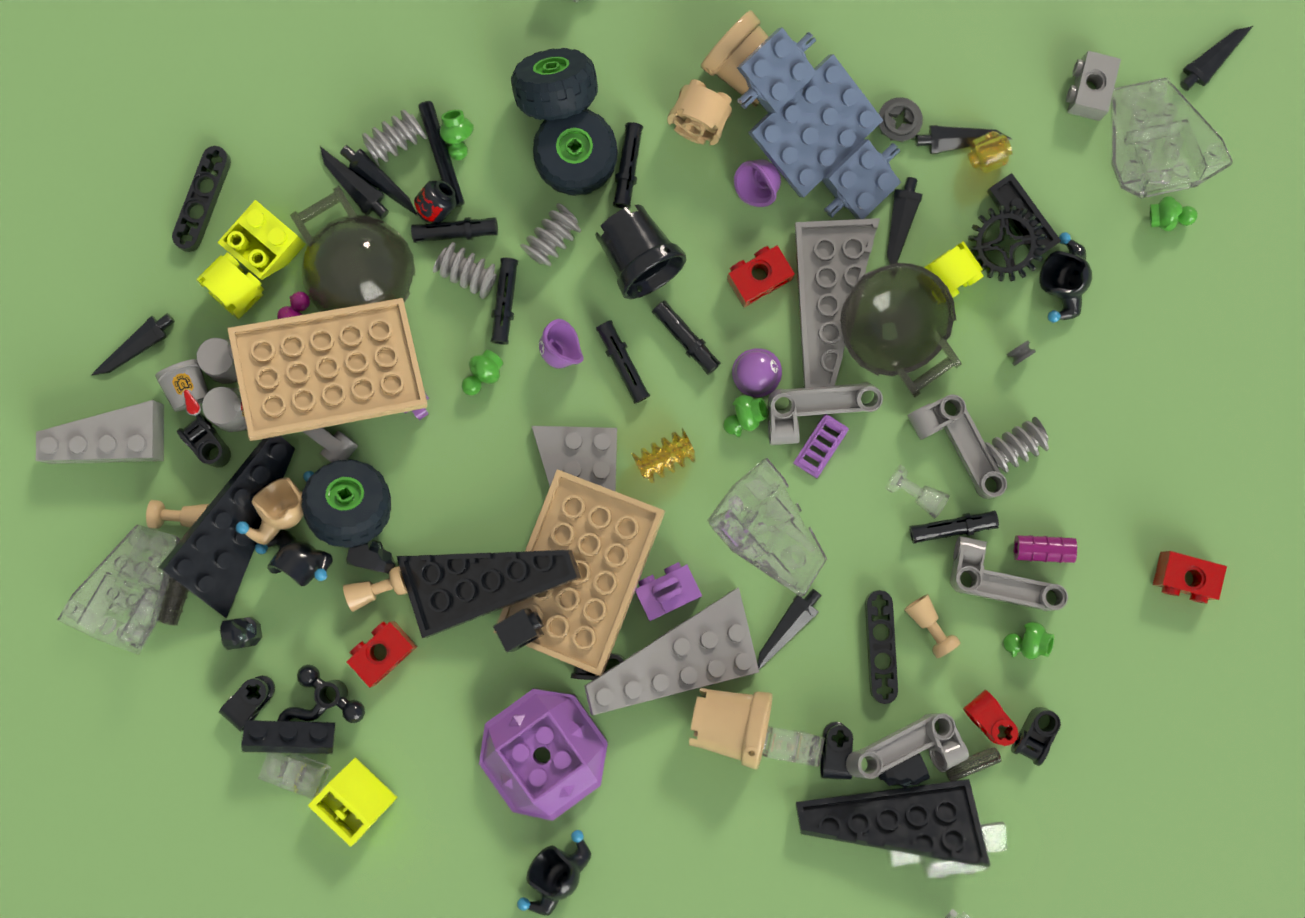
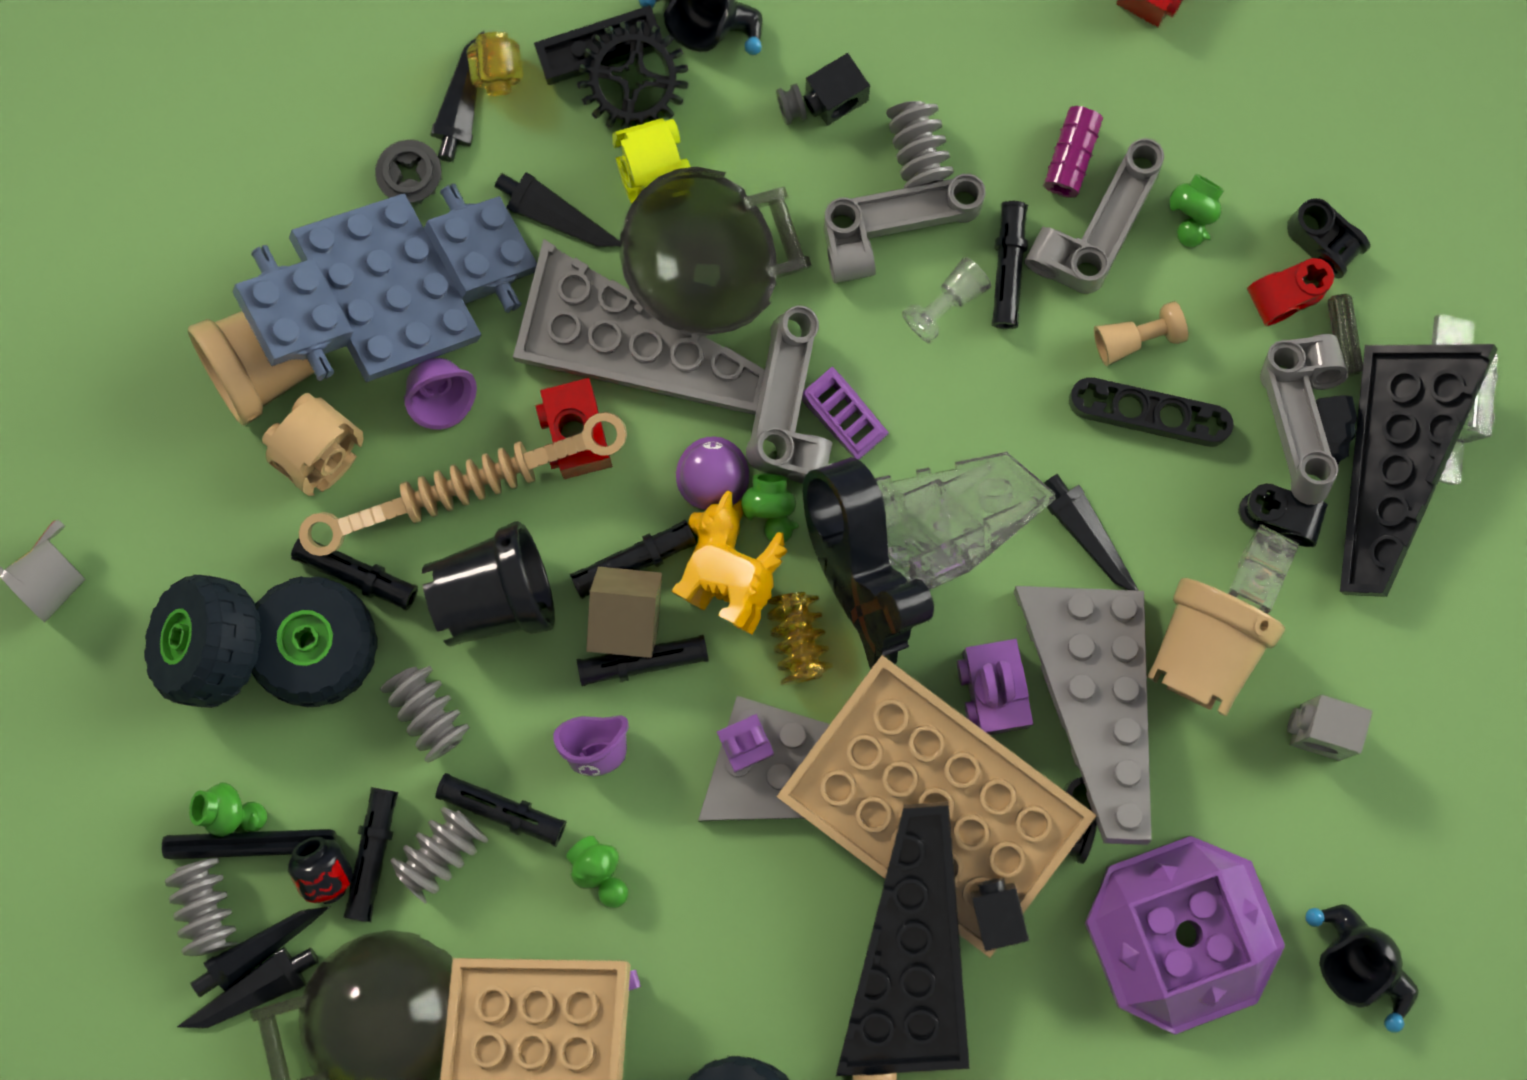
camera: 70 degrees left, 5 degrees down
(586, 441) = (745, 743): none -> medium lavender tile
(648, 340) = (624, 612): none -> dark tan head
(688, 196) = (460, 484): none -> tan piece
(692, 397) = (725, 573): none -> yellow animal
(701, 815) = (1329, 727): none -> light grey brick
(730, 474) = (851, 544): none -> black animal
(1040, 379) = (836, 89): none -> black brick

